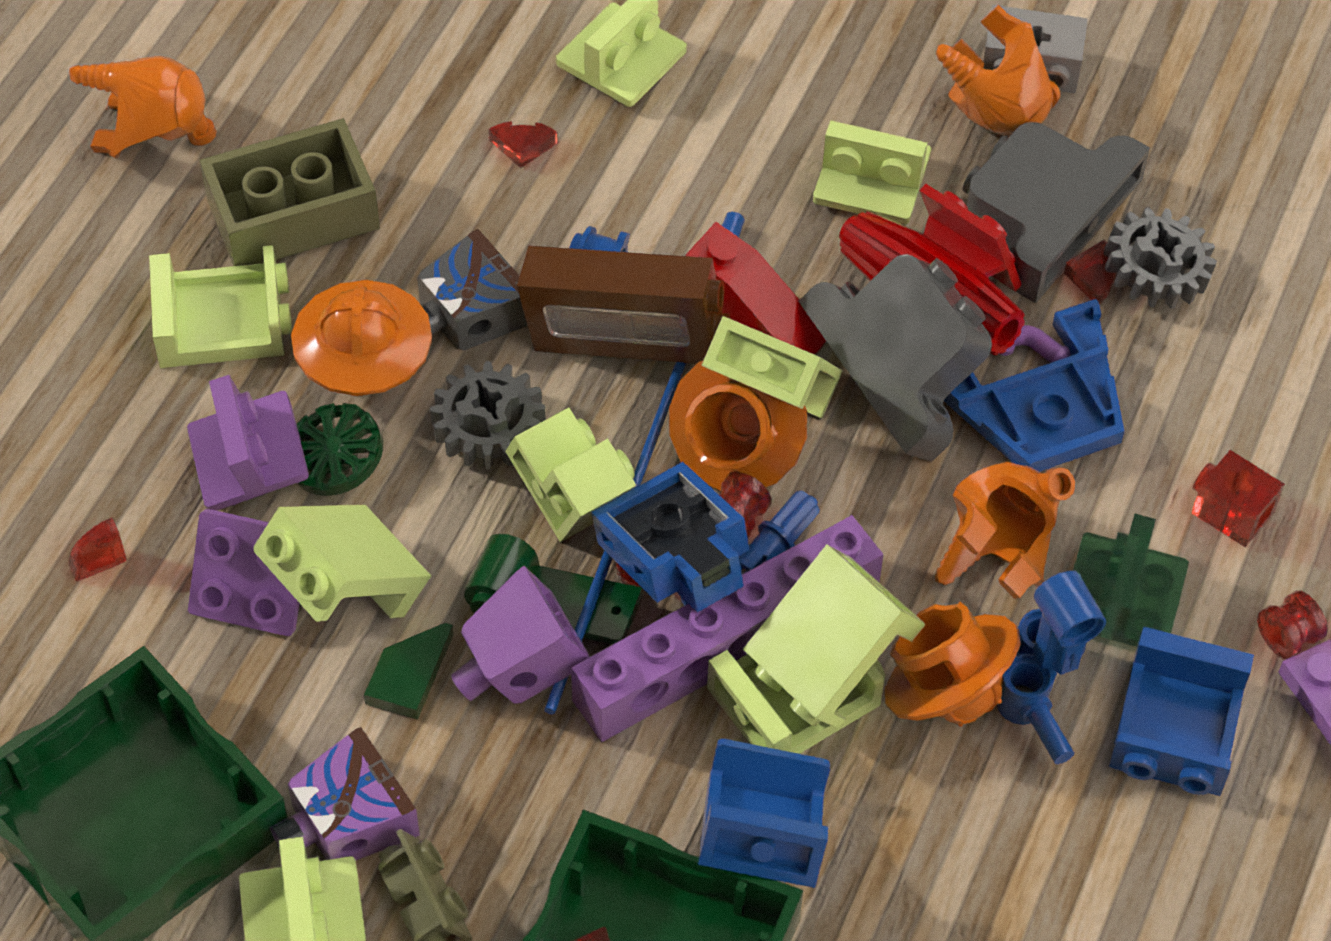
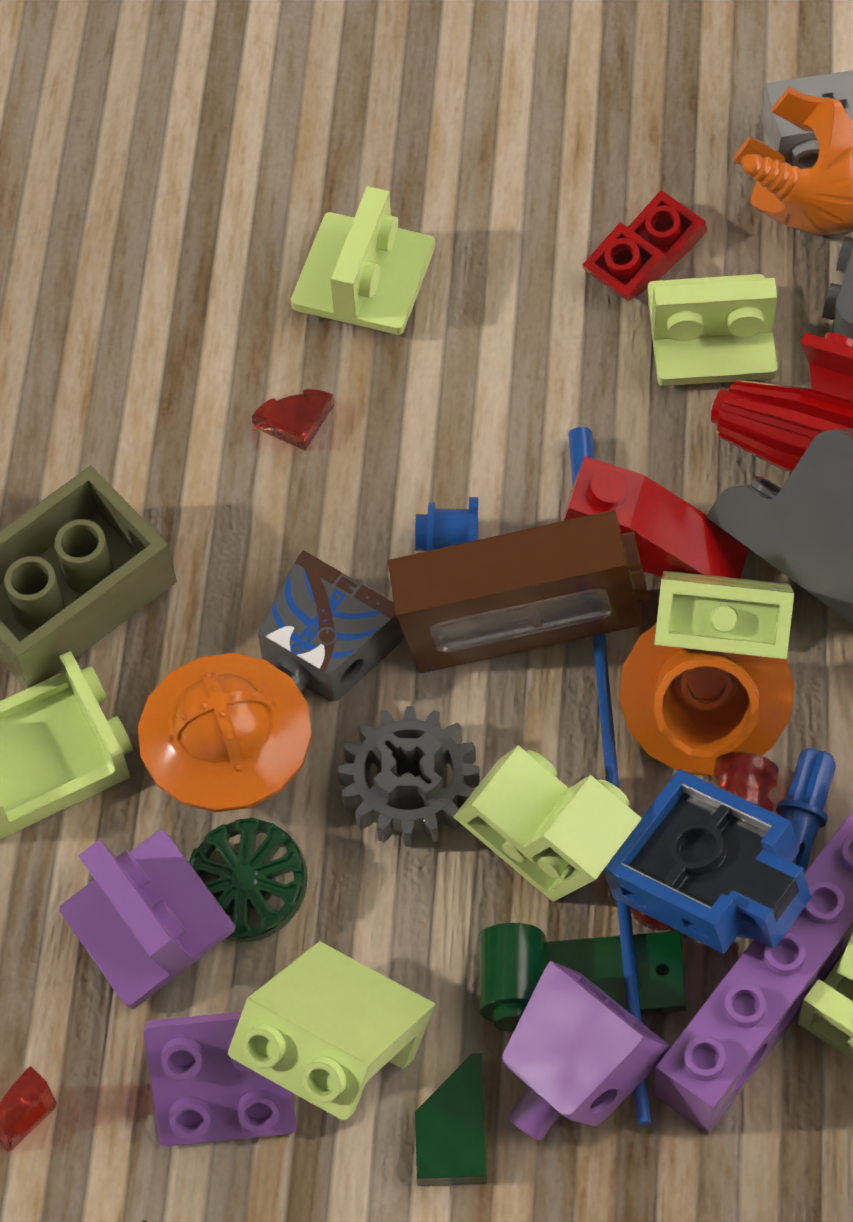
camera: 15 degrees left, 5 degrees up
(850, 102) = (645, 248): none -> red slope

